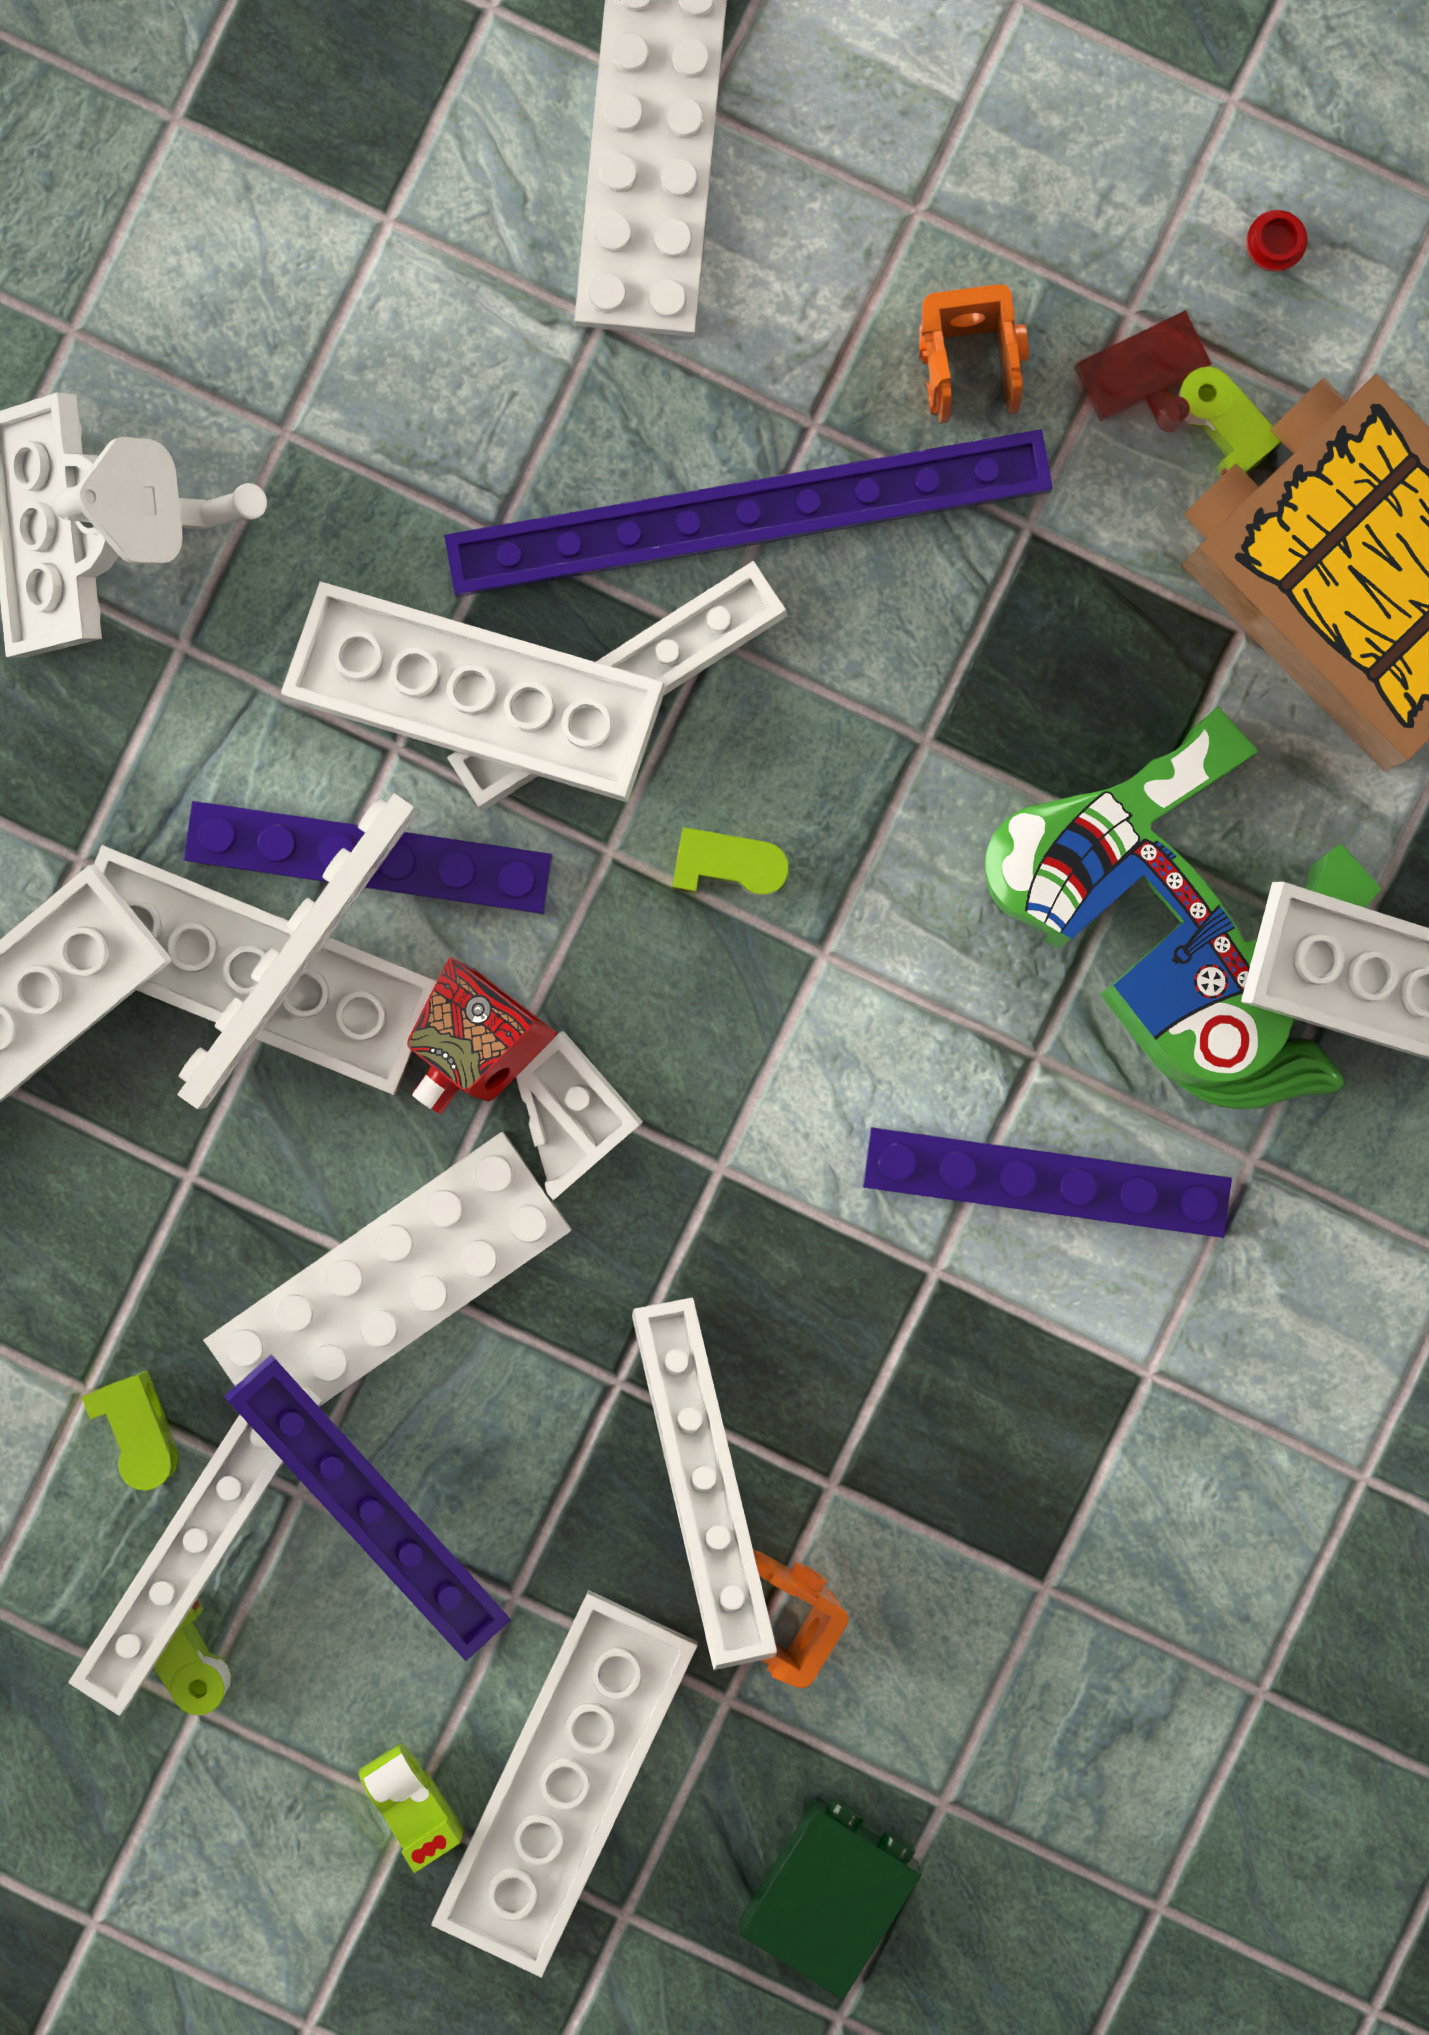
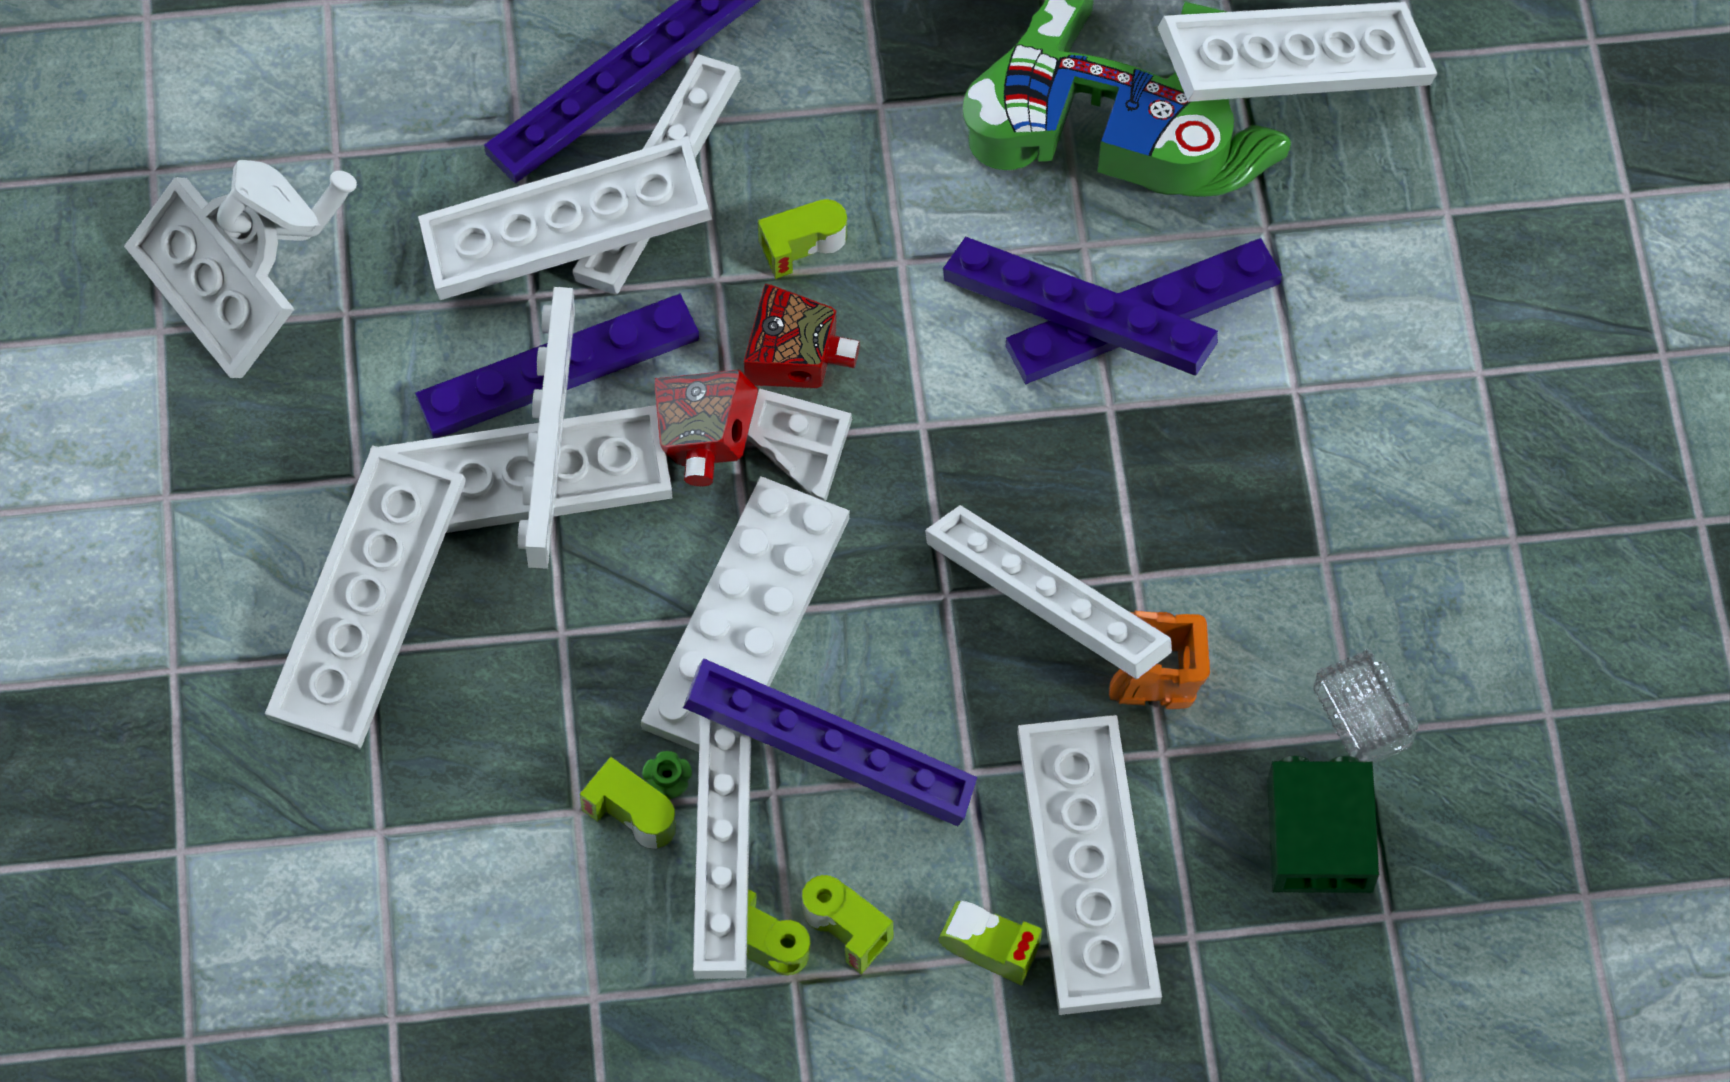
camera: 35 degrees left, 25 degrees down
(212, 1414) = (668, 761): none -> bright green plate
(282, 1689) = (849, 917): none -> lime leg
(637, 994) = (795, 342): none -> torso
(963, 1799) = (1365, 708): none -> clear brick
(970, 1150) = (1081, 305): none -> dark purple plate

